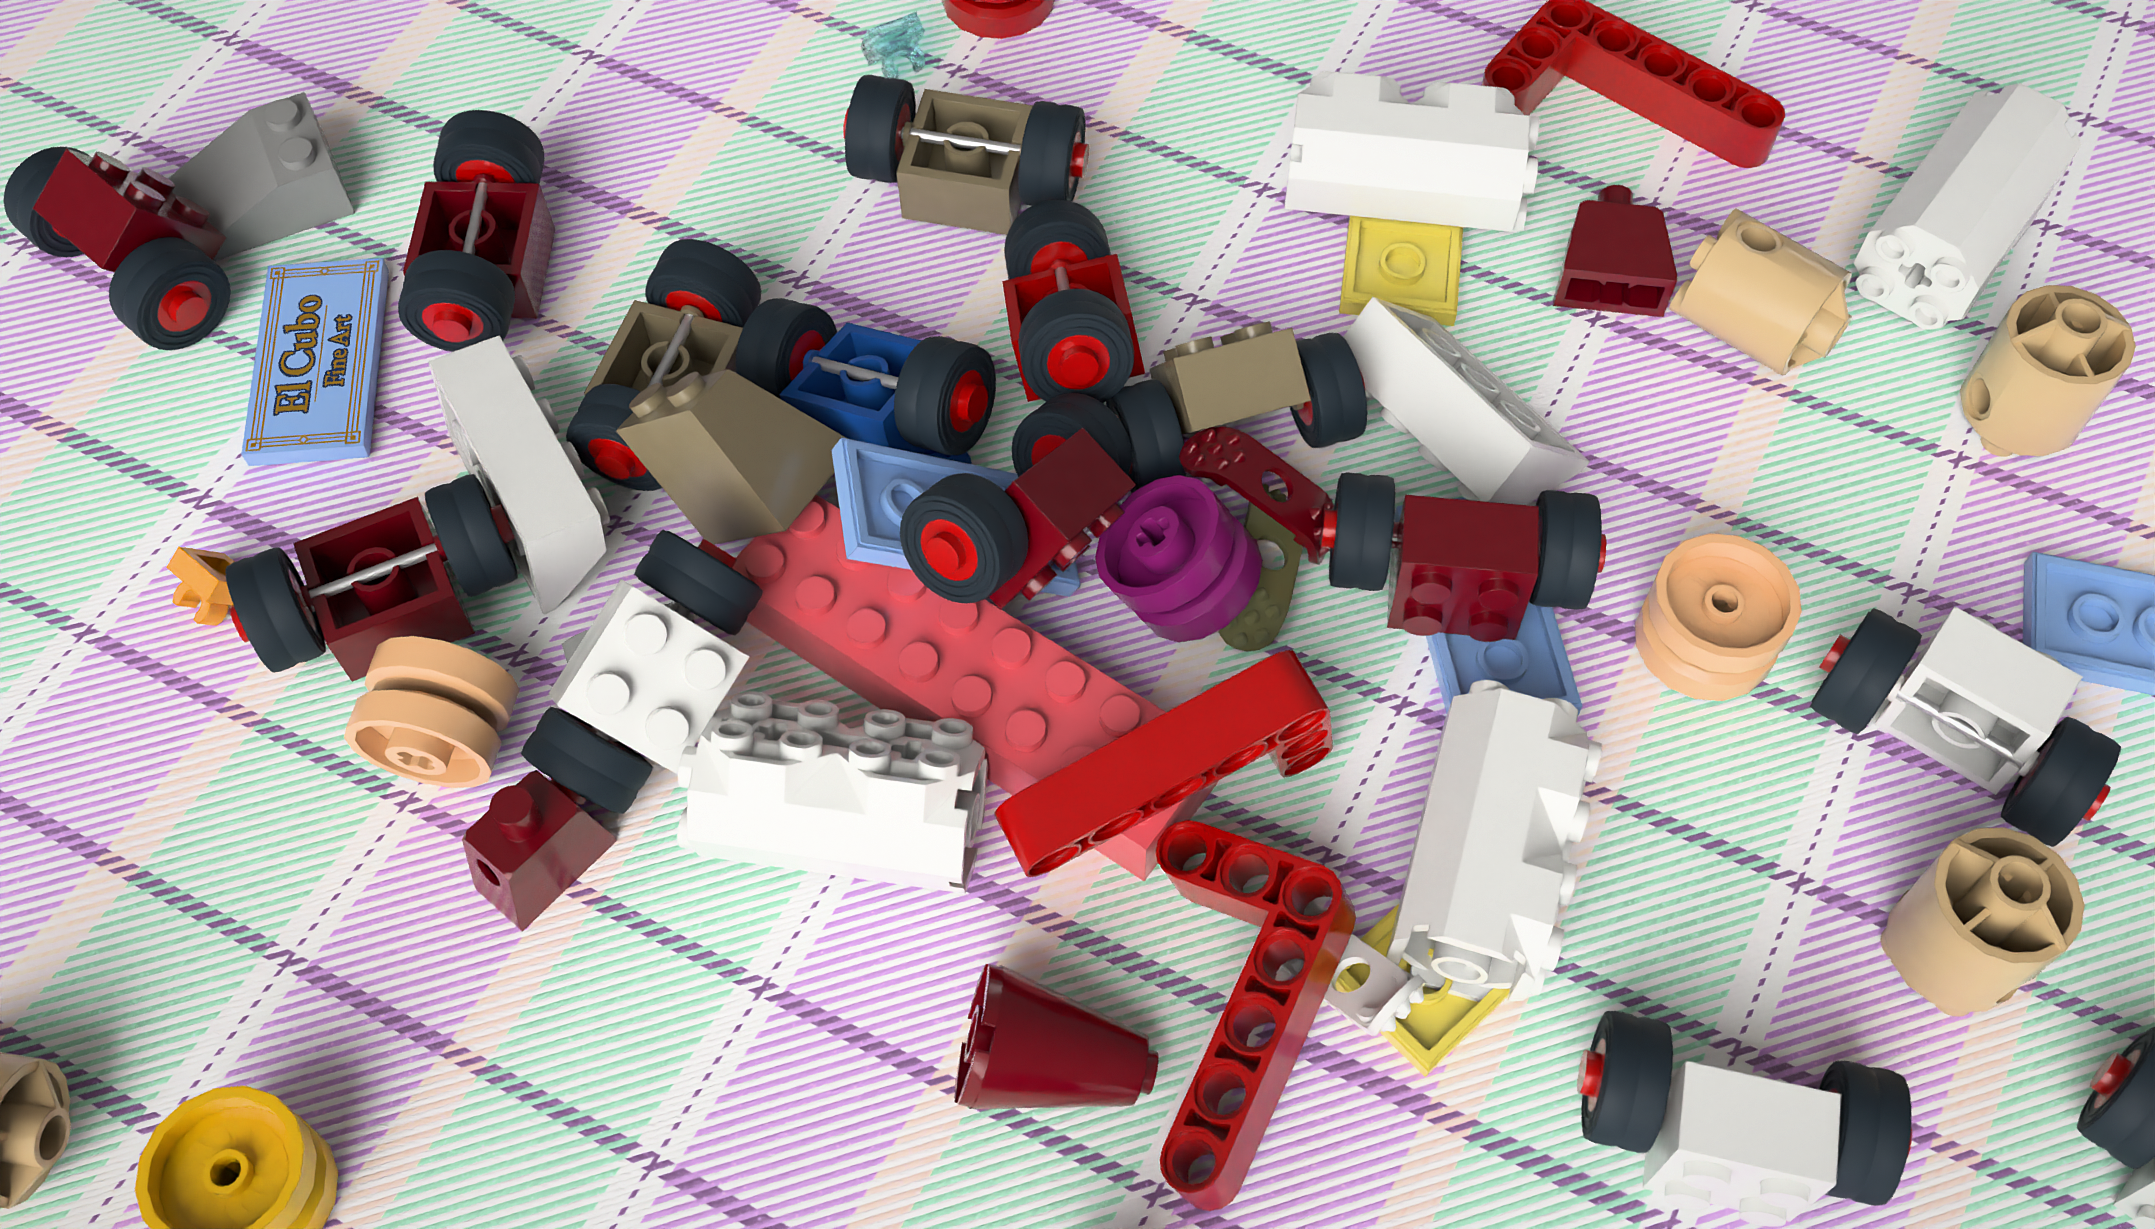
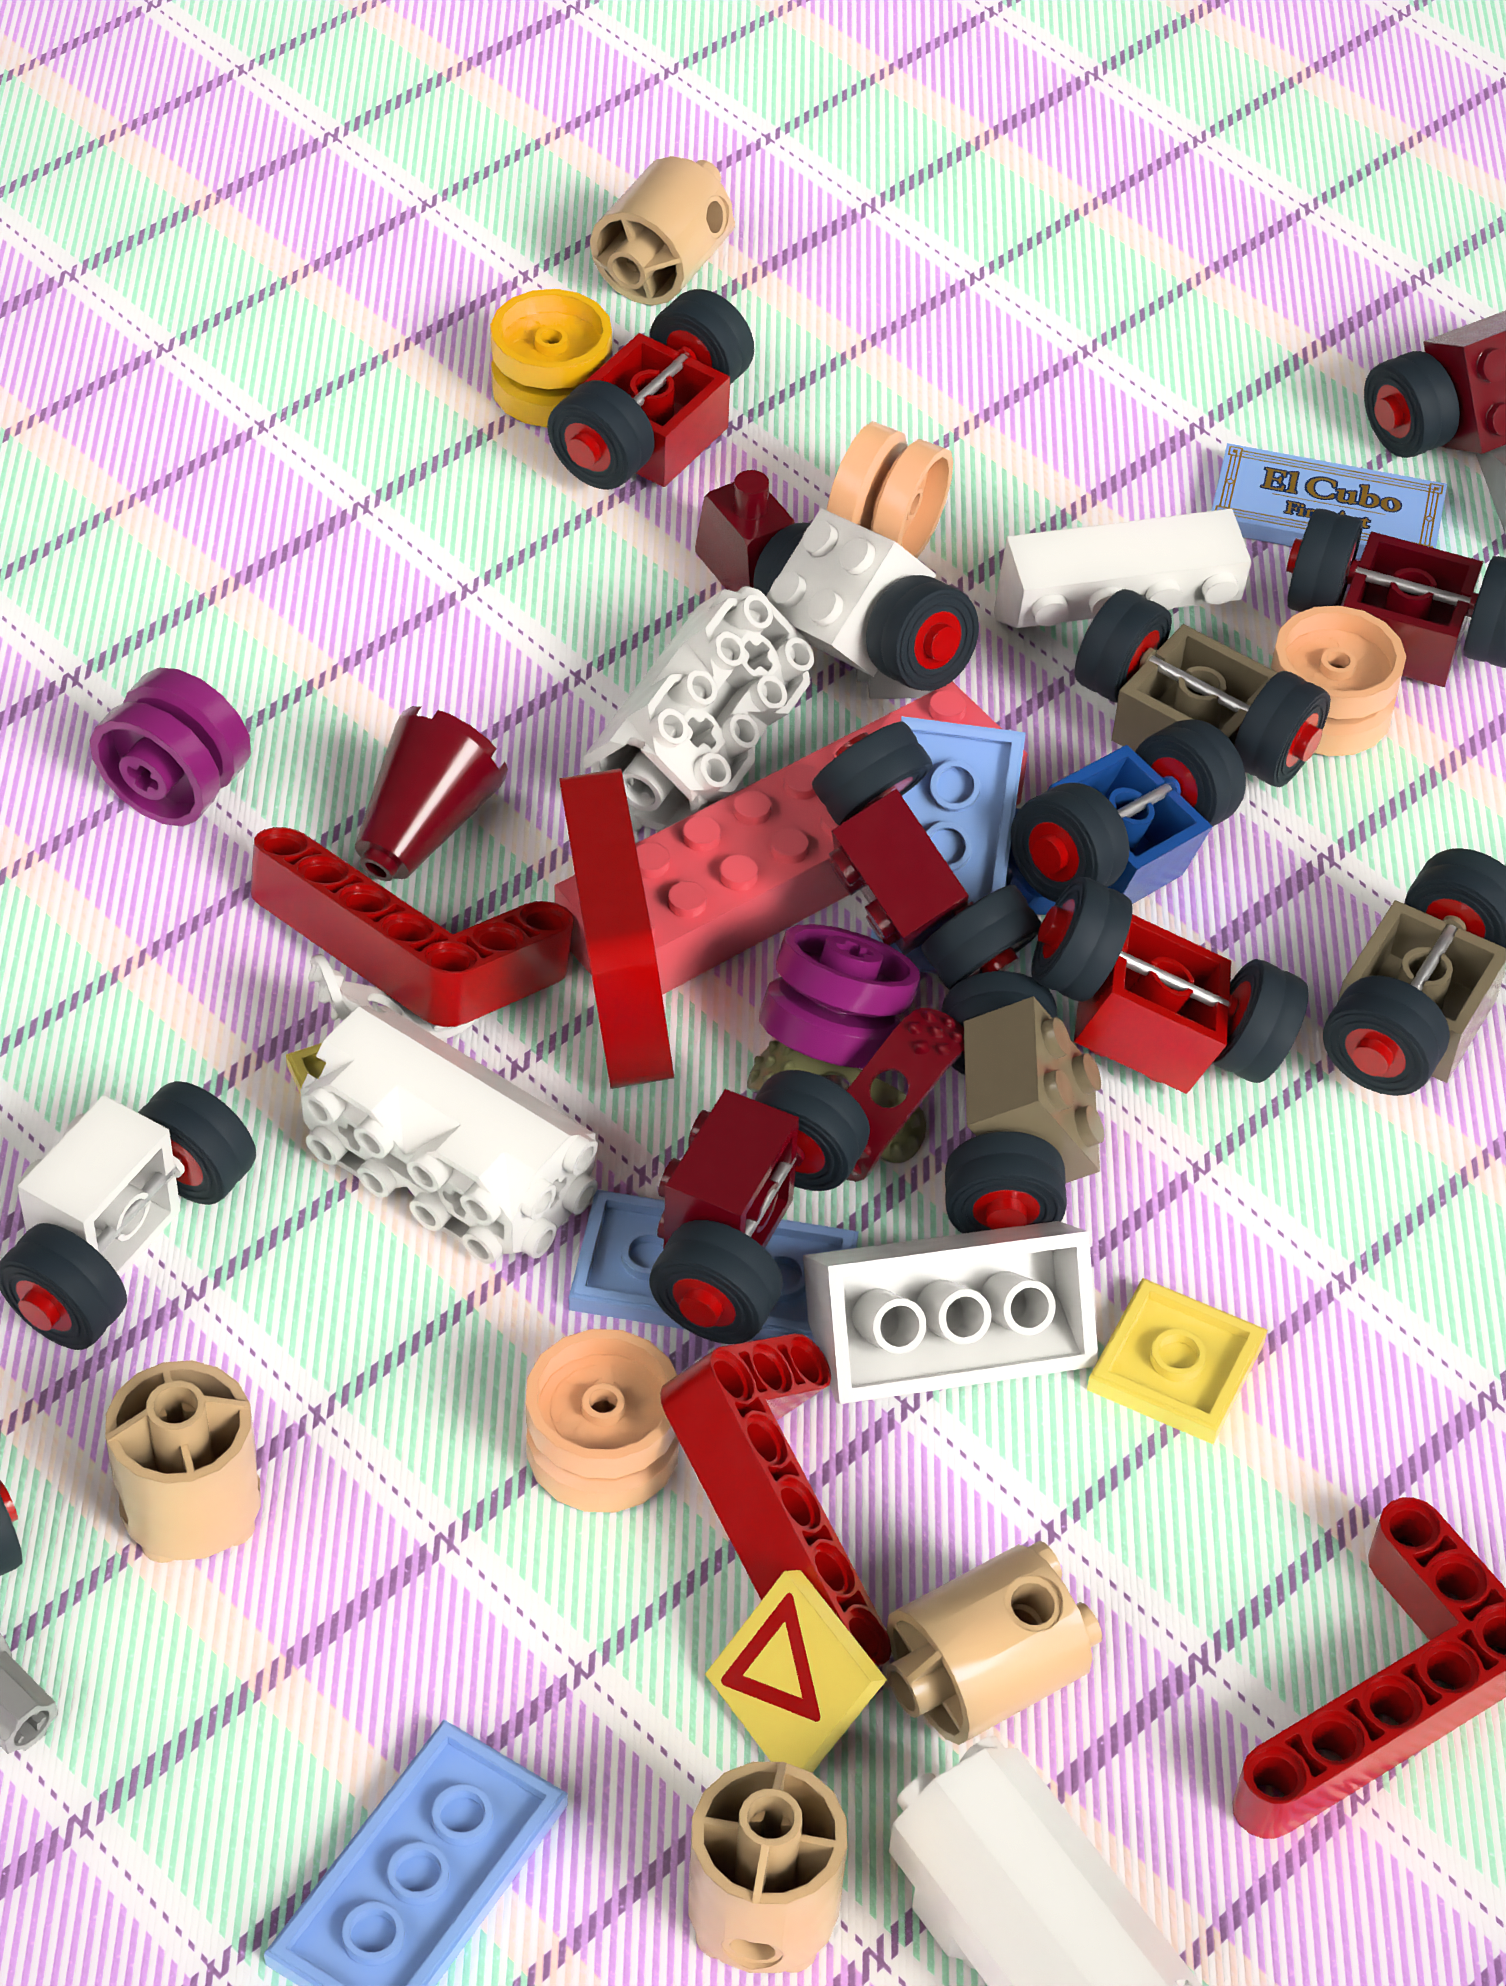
camera: 105 degrees right, 10 degrees down
(204, 580) = (1094, 410): light orange tile -> none
(305, 1017) = (656, 396): none -> brick
(374, 580) = (1028, 458): brick -> none
(587, 277) = (1352, 660): none -> light nougat wheel
(730, 453) = (1059, 681): dark tan slope -> none
(1433, 161) = (1302, 1372): white brick -> none
(1617, 257) = (1125, 1550): dark red torso -> none
(1728, 472) = (730, 1432): none -> red beam
(1866, 410) = (795, 1674): none -> light yellow tile
(1977, 709) = (395, 1585): brick -> none

